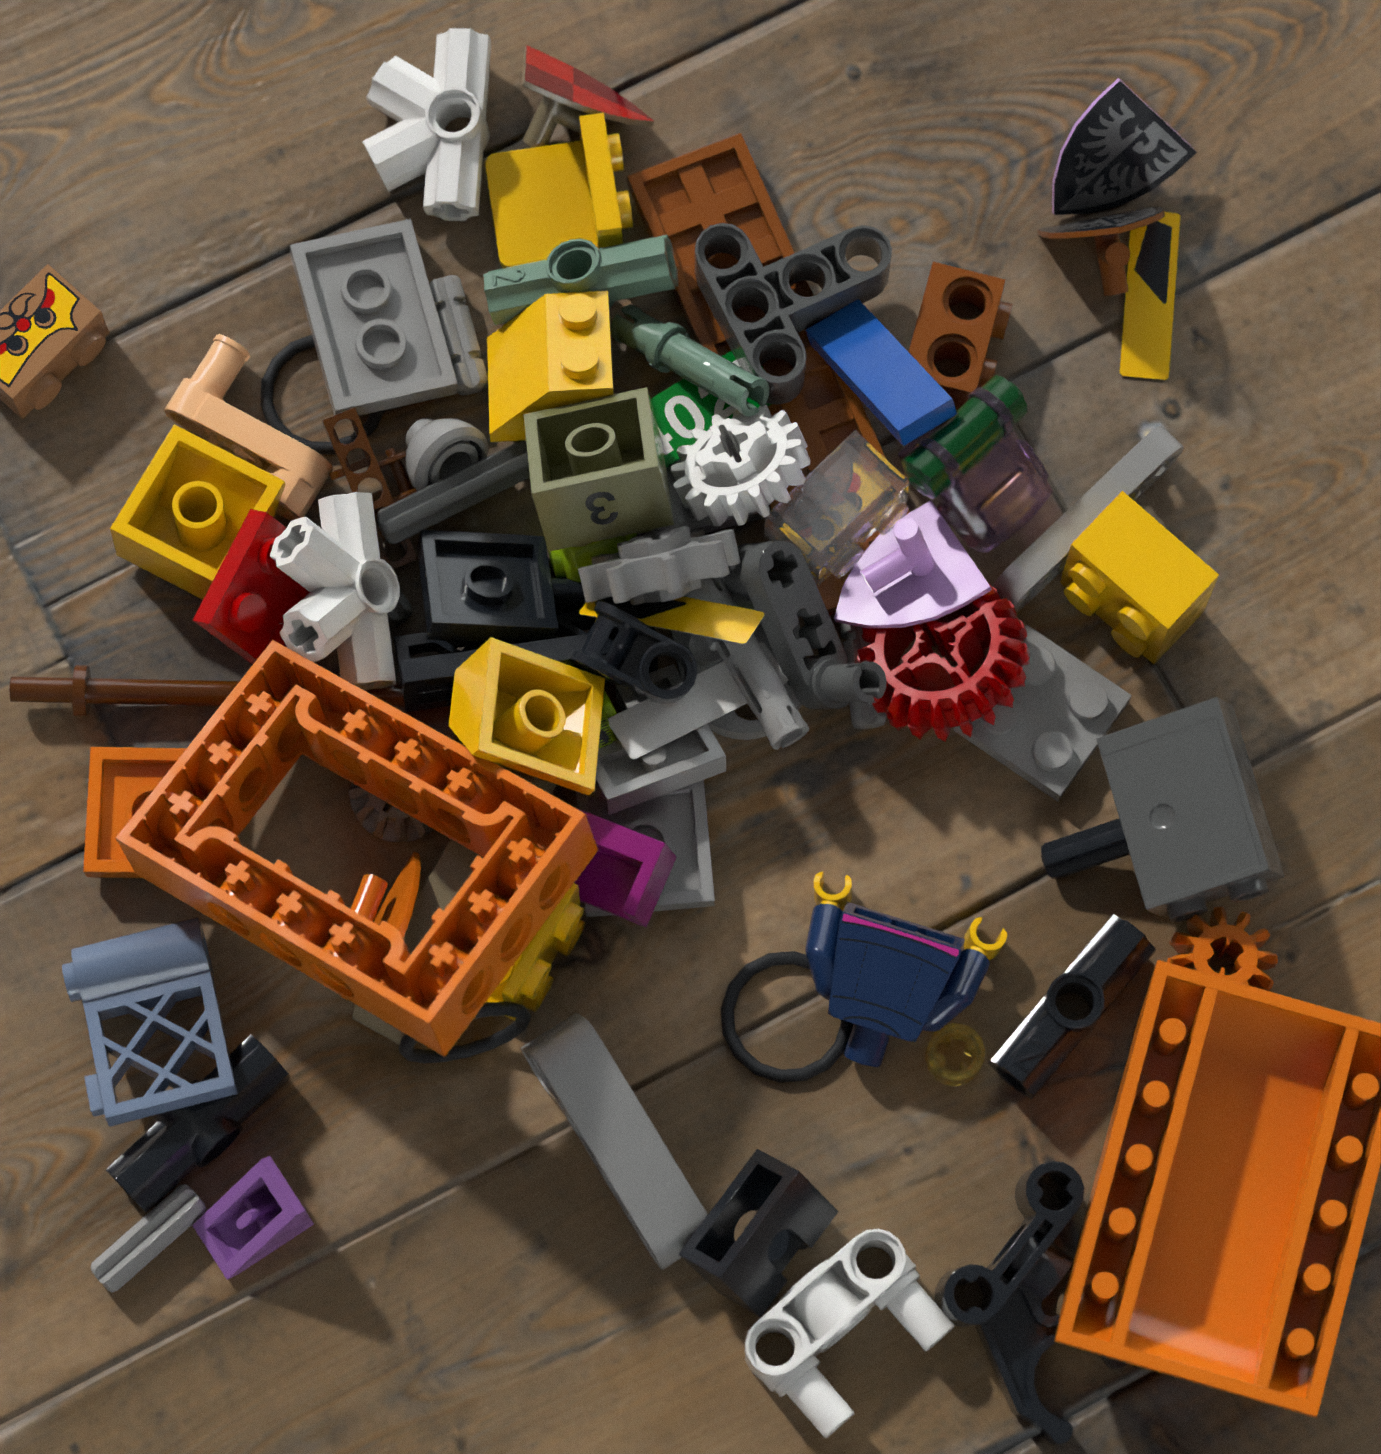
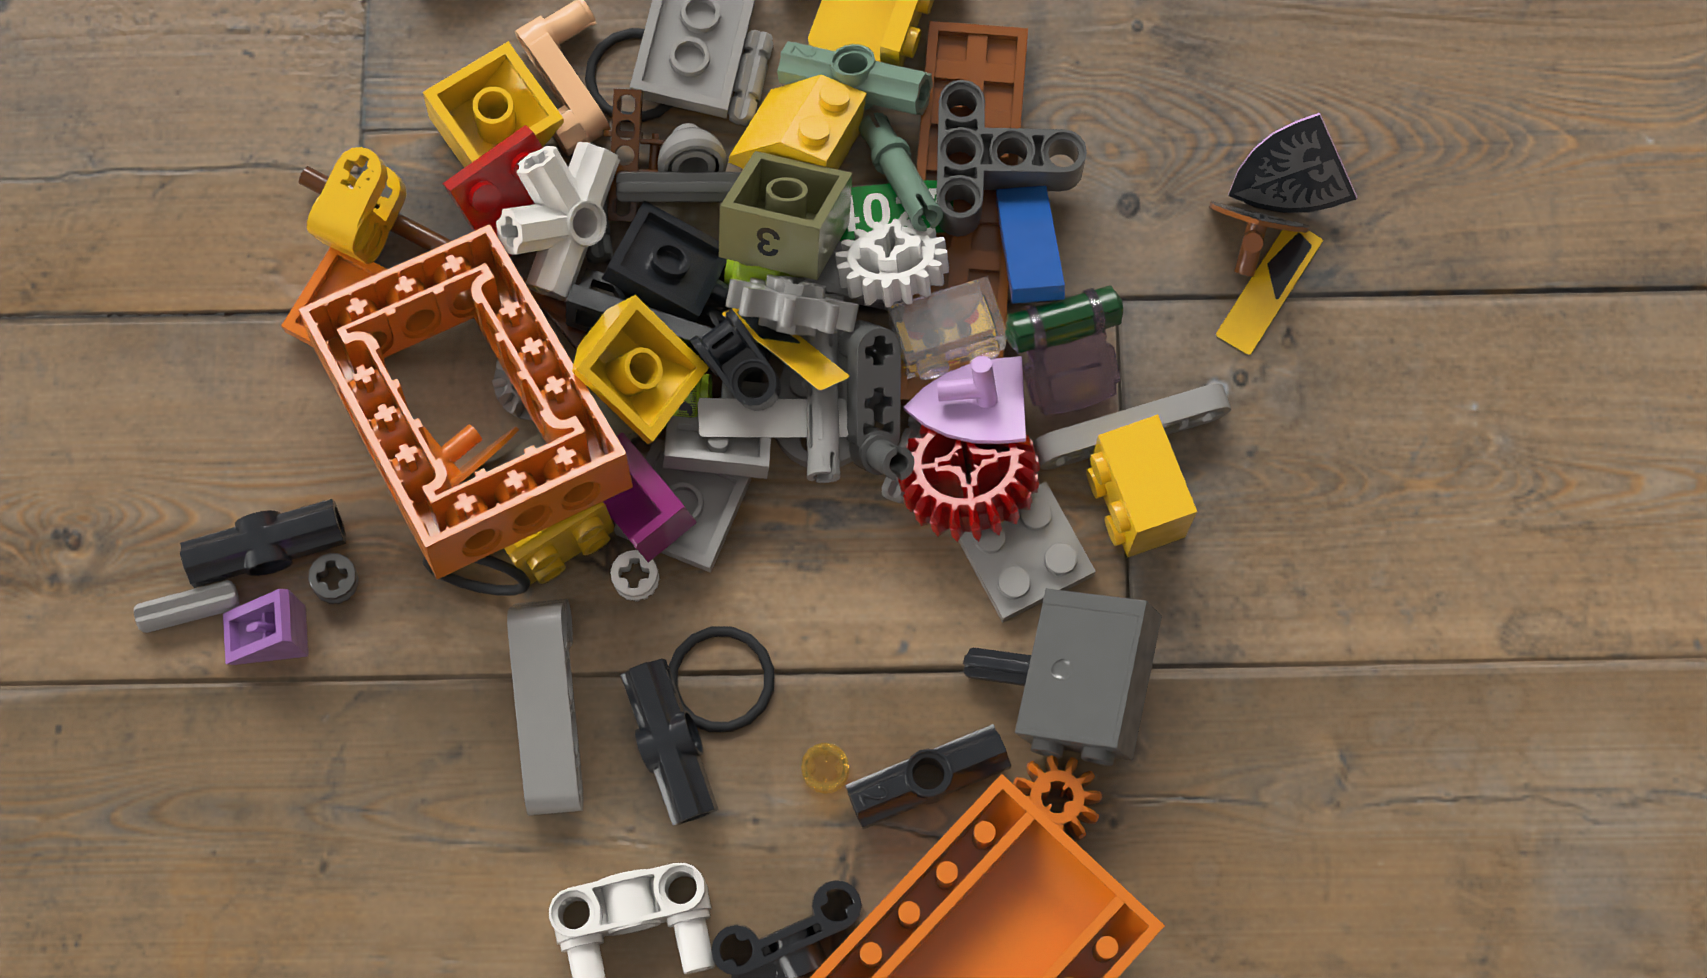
camera: 30 degrees right, 0 degrees up
(109, 709) = (347, 216): none -> yellow piece
(130, 978) = (276, 416): sand blue piece -> none
(292, 1142) = (320, 570): none -> dark grey bush
(625, 968) = (645, 587): none -> white bush
(773, 1110) = (669, 742): none -> black piece
(787, 1220) = (594, 842): black brick -> none
(890, 971) = (807, 683): dark blue torso -> none
(944, 336) = (1094, 242): dark orange brick -> none

